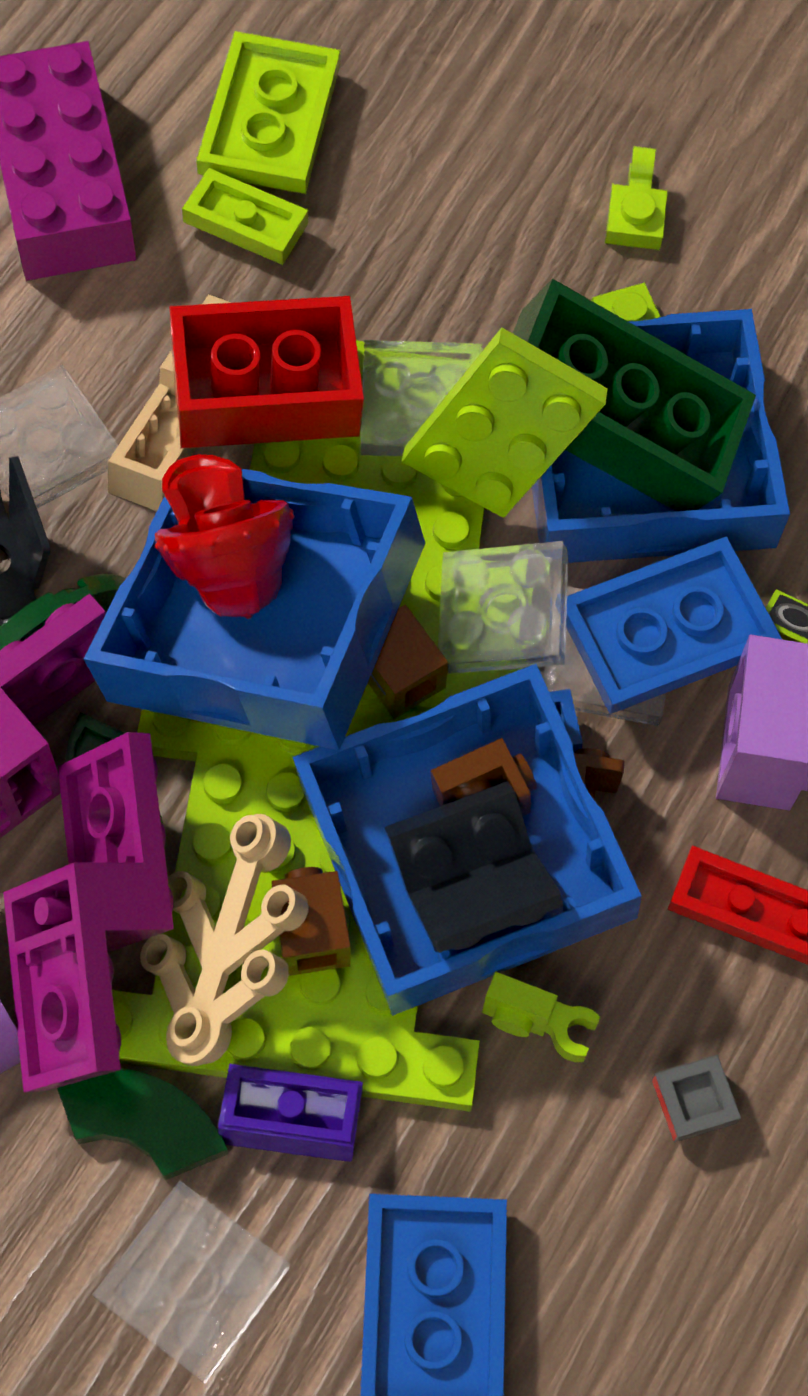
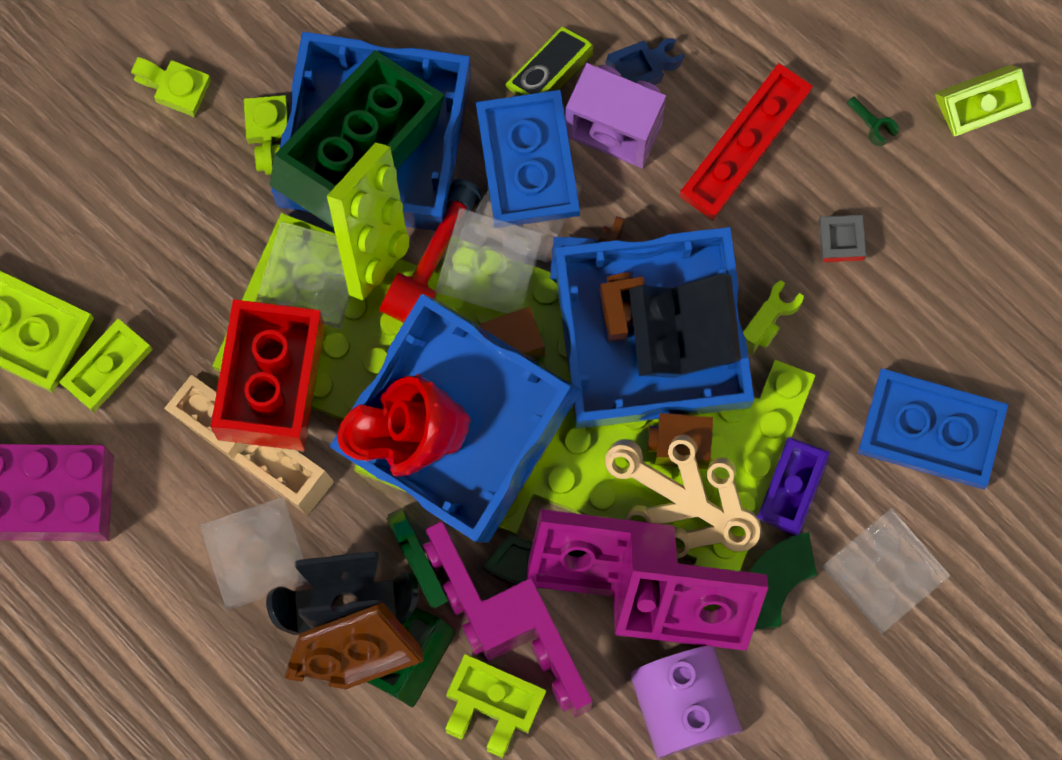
camera: 70 degrees left, 10 degrees up
(437, 524) = (407, 290): none -> red piece

